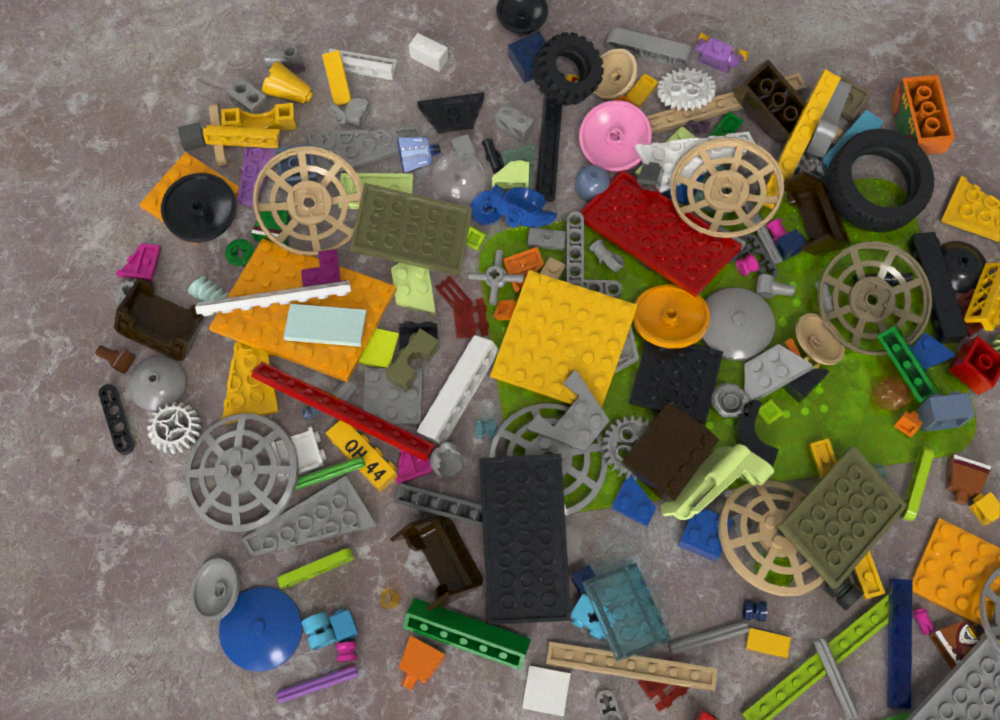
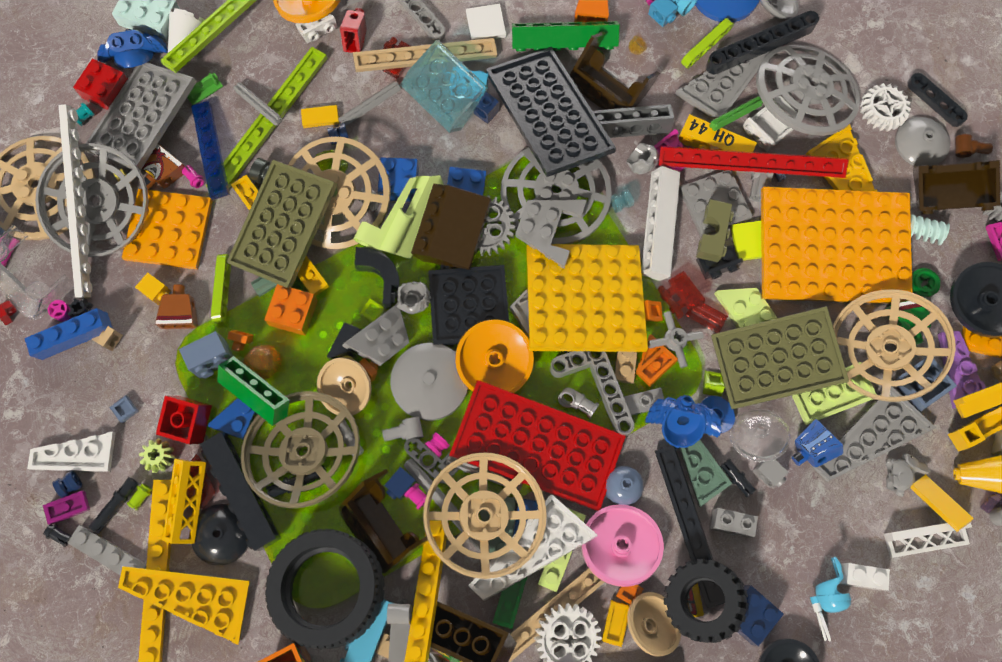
camera: 155 degrees right, 5 degrees up
(252, 534) = (771, 37): none -> black beam
(265, 299) = (868, 235): white plate -> none
(325, 325) = (808, 227): light aqua tile -> none
(327, 272) = (833, 283): magenta plate -> none
(453, 112) = (801, 514): black wing -> none
(463, 46) = (829, 598): none -> medium azure hair
(512, 175) = (706, 454): yellowish green slope -> none
(651, 177) = (567, 495): dark grey slope -> none
(704, 127) = (538, 595): arm -> none
(814, 165) = (405, 588): light grey gear -> none
(852, 429) = (291, 310): none -> orange brick

